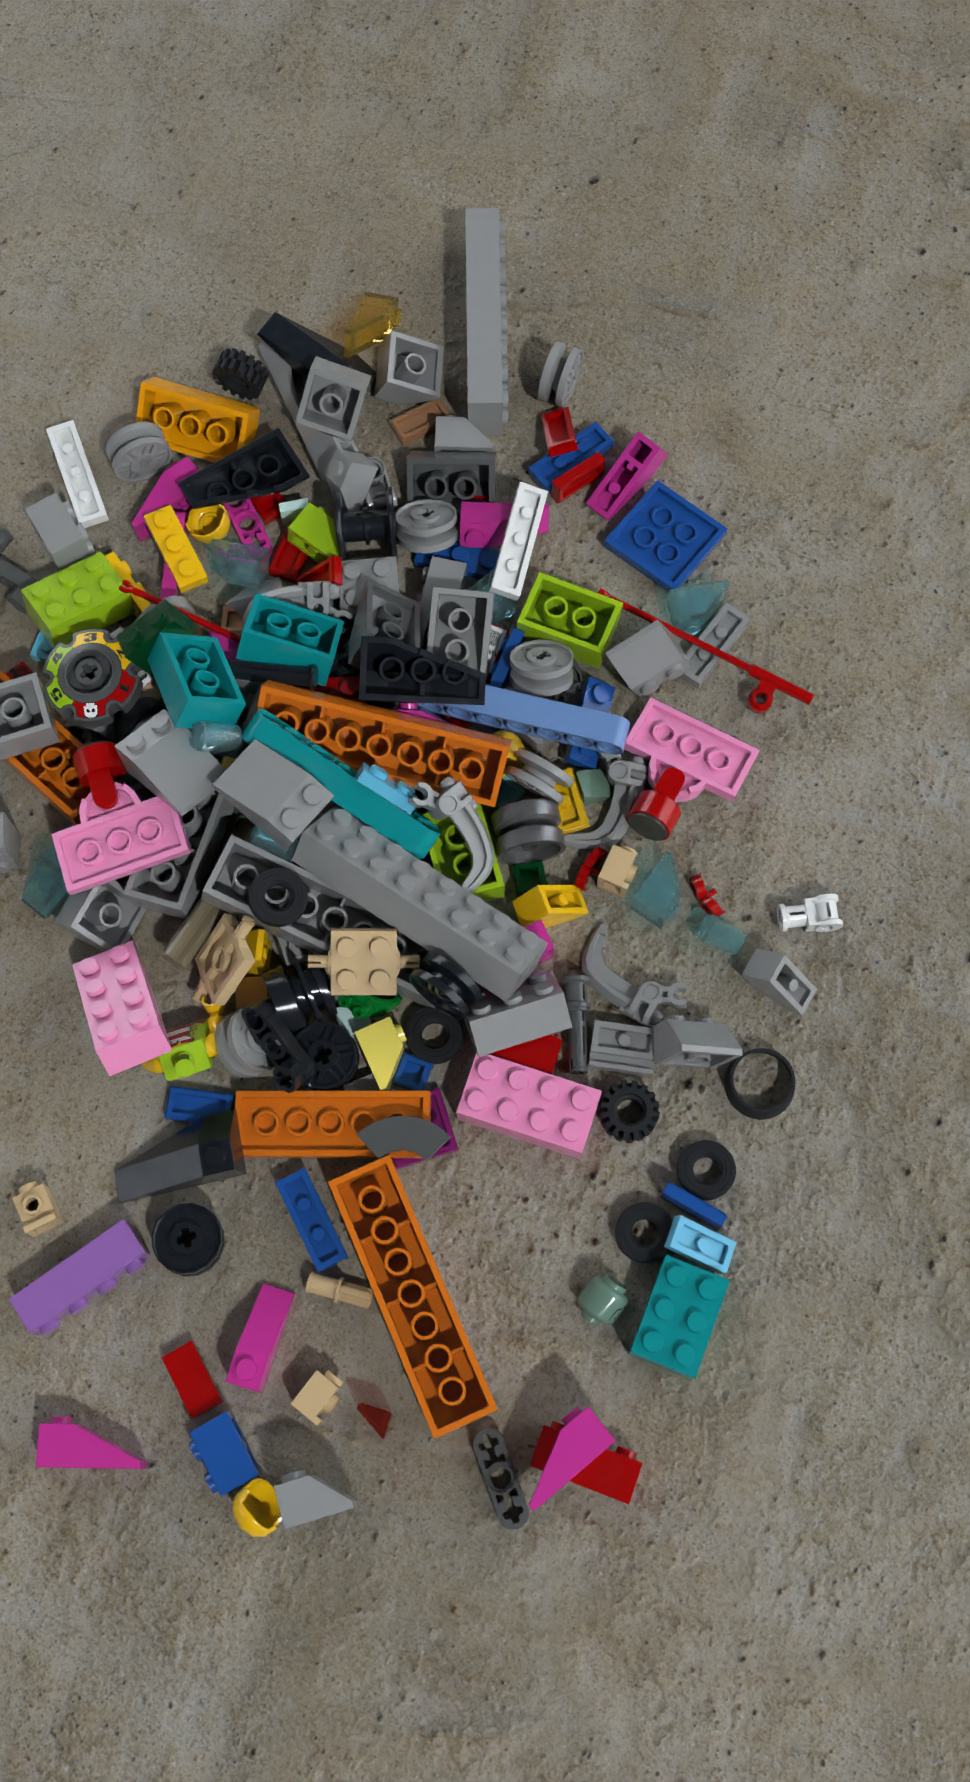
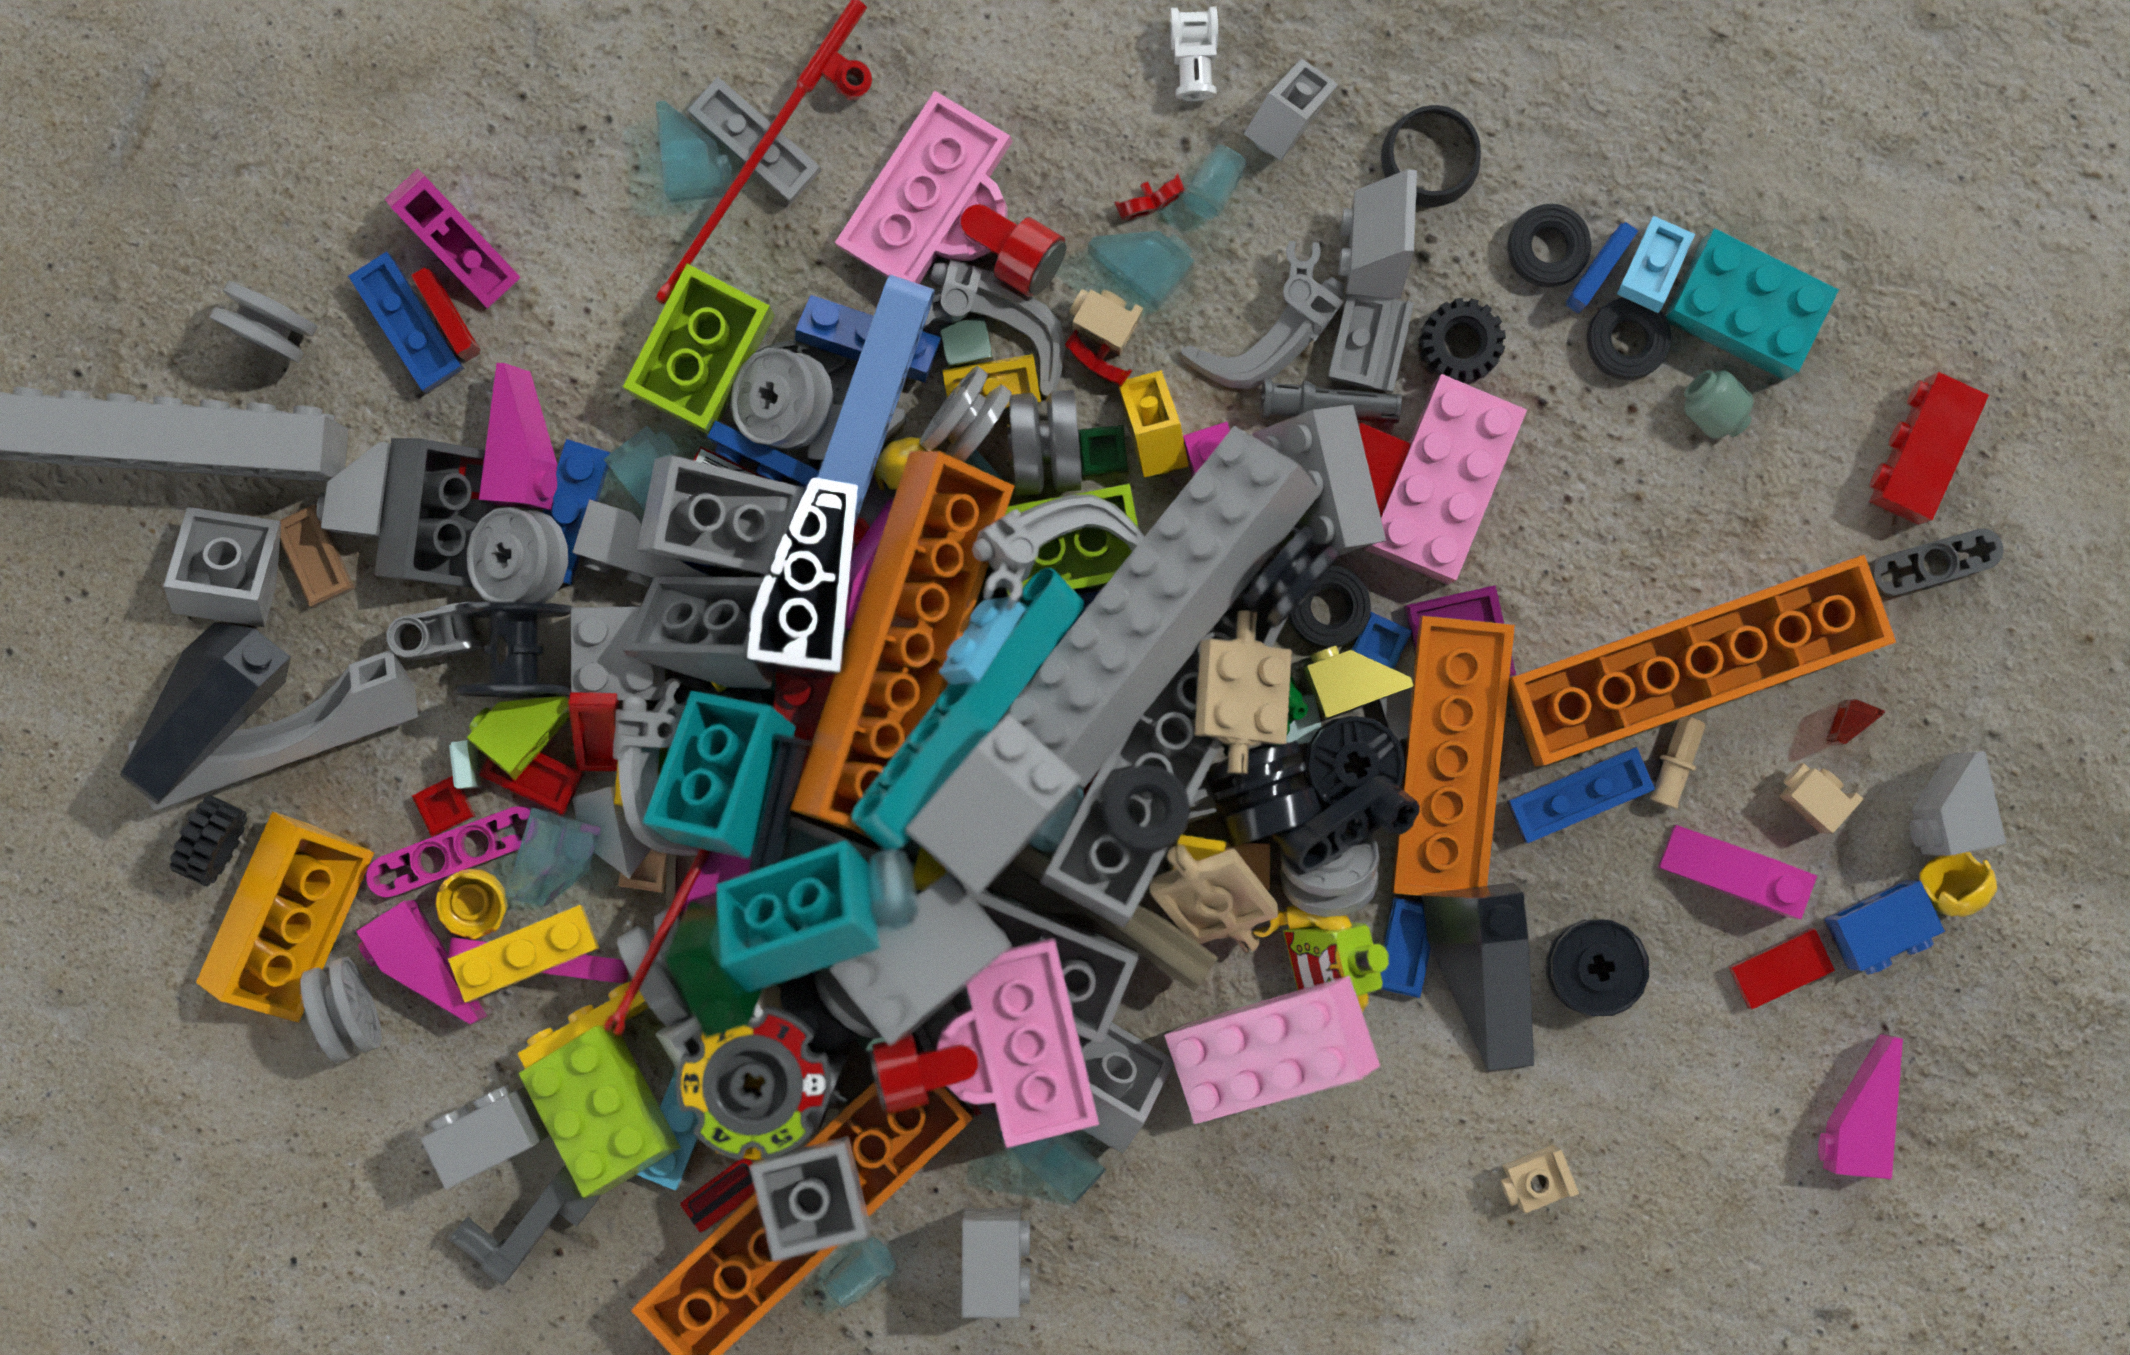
camera: 90 degrees left, 15 degrees up
(77, 474) = (360, 1113): white plate -> none
(79, 1278) = (1639, 1119): medium lavender brick -> none
(252, 471) = (400, 828): black wedge -> none
(333, 398) = (288, 686): light grey brick -> none
(350, 475) = (426, 669): light grey slope -> none
(371, 322) = (131, 617): clear yellow slope -> none
(403, 1134) = (1484, 655): dark grey tile -> none
(518, 541) = (567, 413): white plate -> none
(559, 432) = (362, 335): red tile -> none
(575, 1447) = (1926, 459): dark pink slope -> none
(648, 658) = (783, 234): light grey slope -> none
(665, 537) = (562, 189): blue plate -> none

